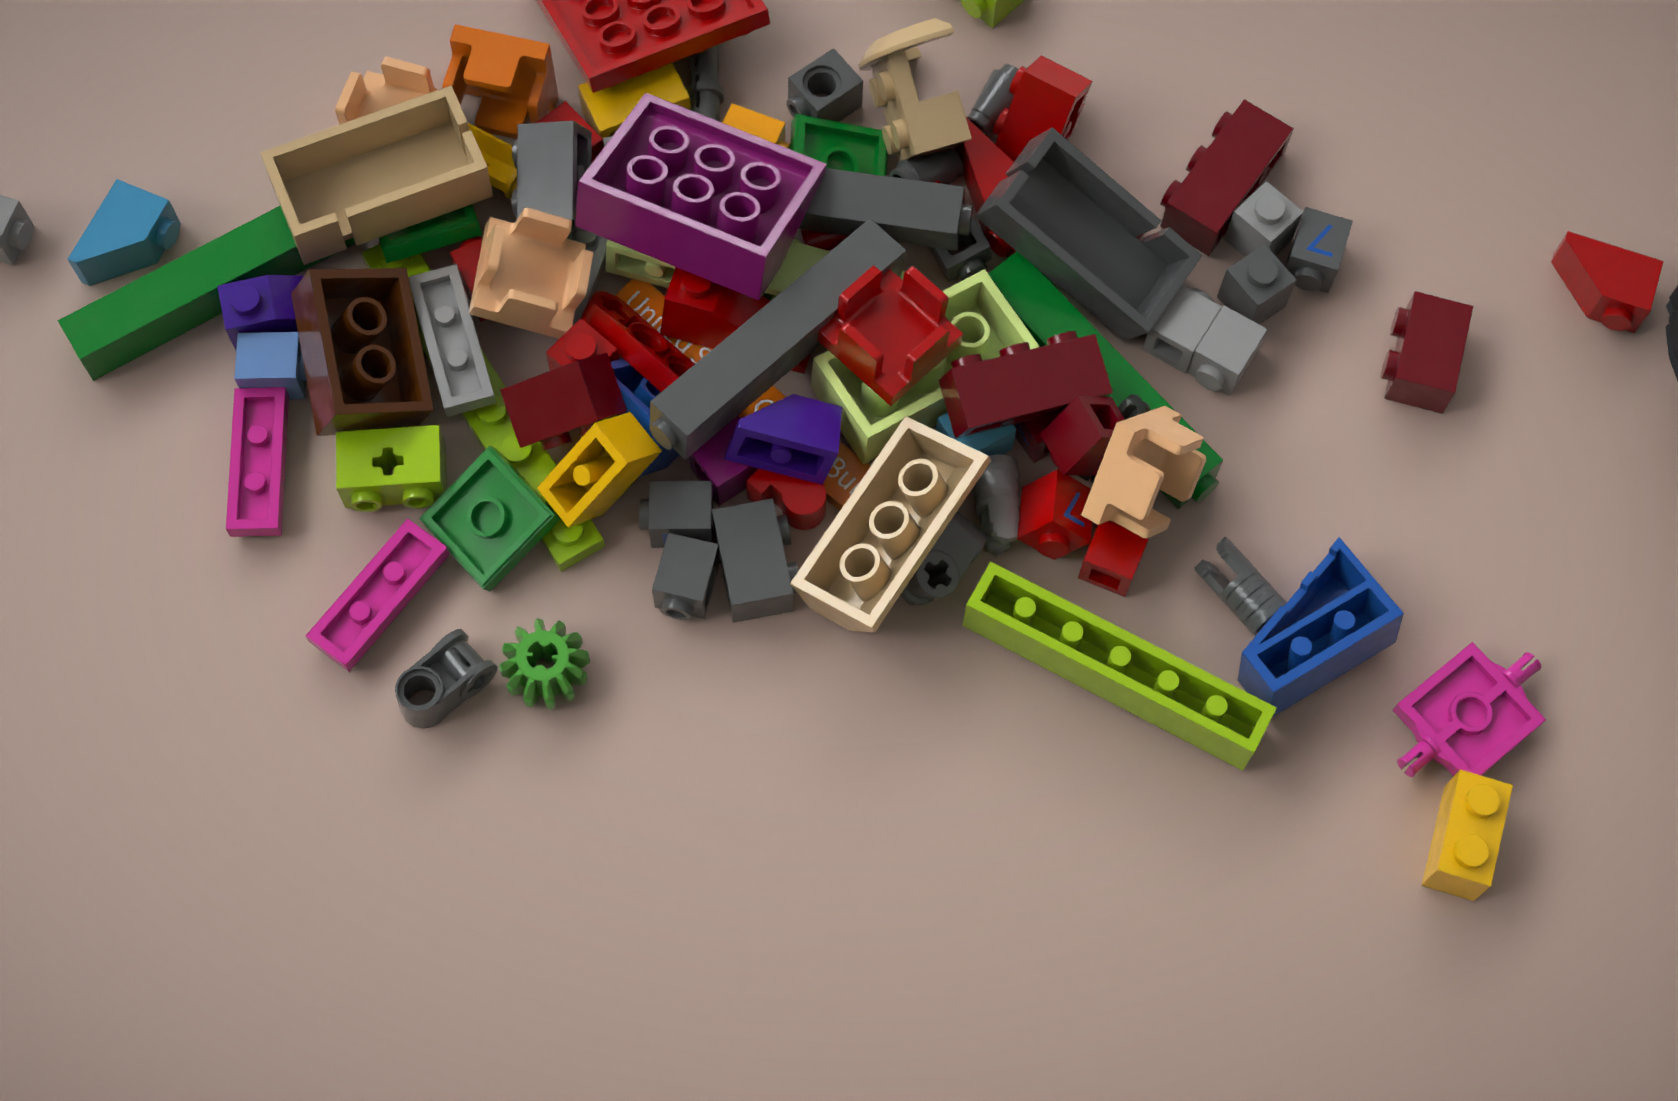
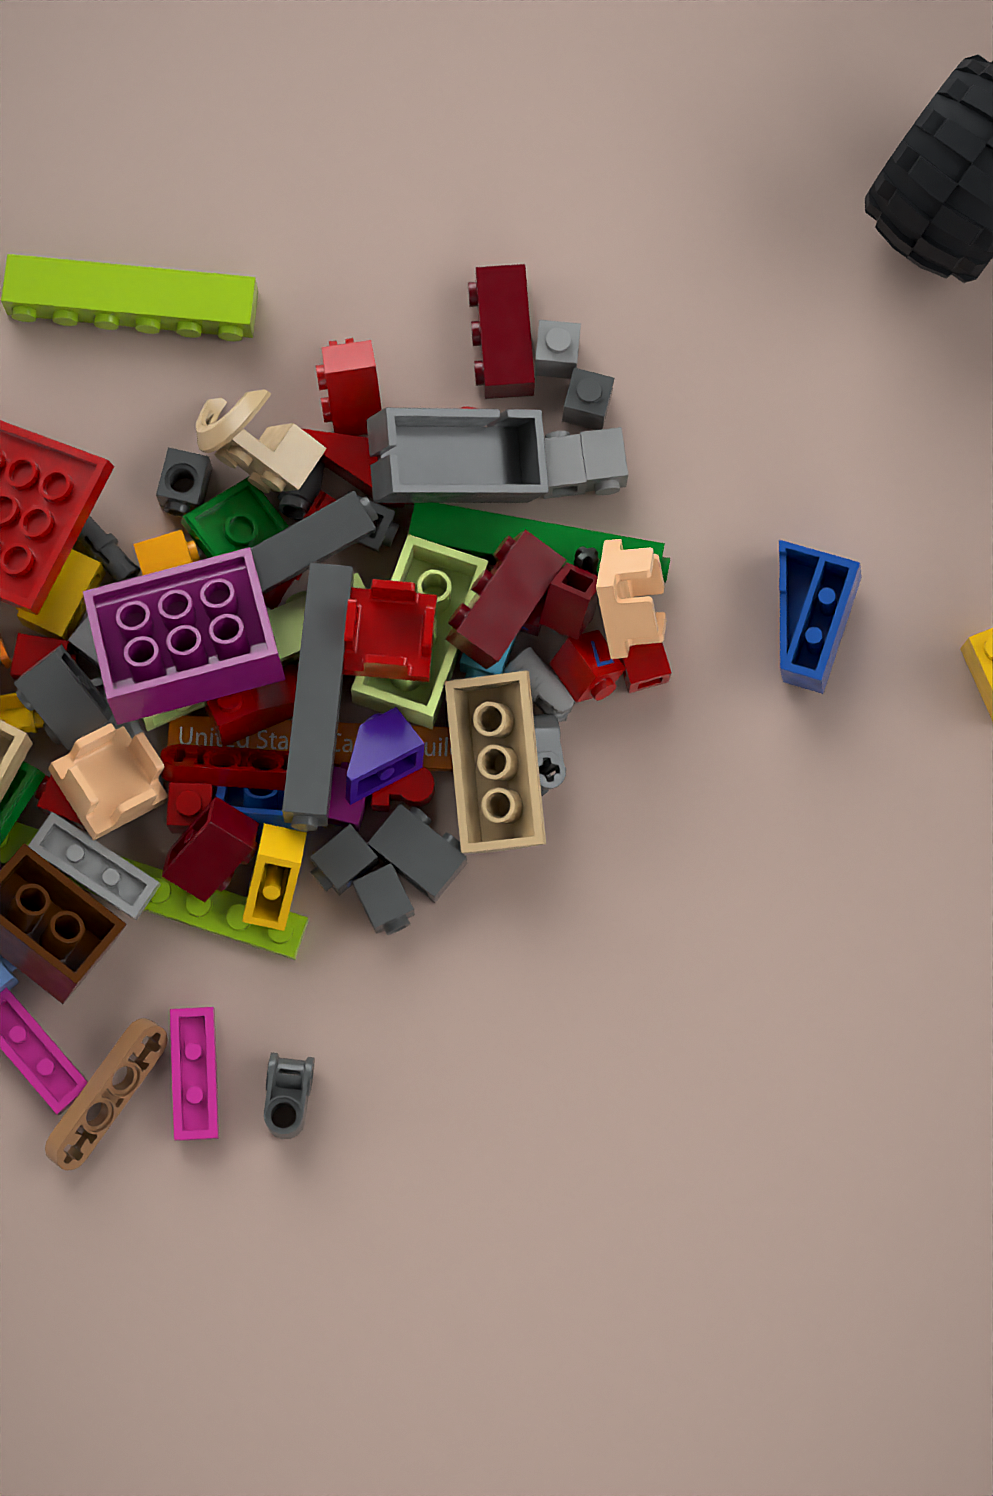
camera: 40 degrees left, 10 degrees up
(288, 556) = (112, 1097): none -> medium nougat beam
(366, 462) = (104, 986): lime brick -> none
(490, 518) = (222, 964): green plate -> none
(552, 647) = (335, 1018): bright green gear -> none
(993, 99) = (304, 393): dark grey cone -> none
(1117, 666) = (706, 737): lime brick -> none
(1248, 594) = (750, 619): dark grey hinge -> none
(1317, 249) = (606, 340): dark grey brick -> none
(1427, 352) = (731, 357): dark red brick -> none
(1469, 713) = (942, 590): dark pink plate -> none
(1608, 280) = (809, 212): red slope -> none

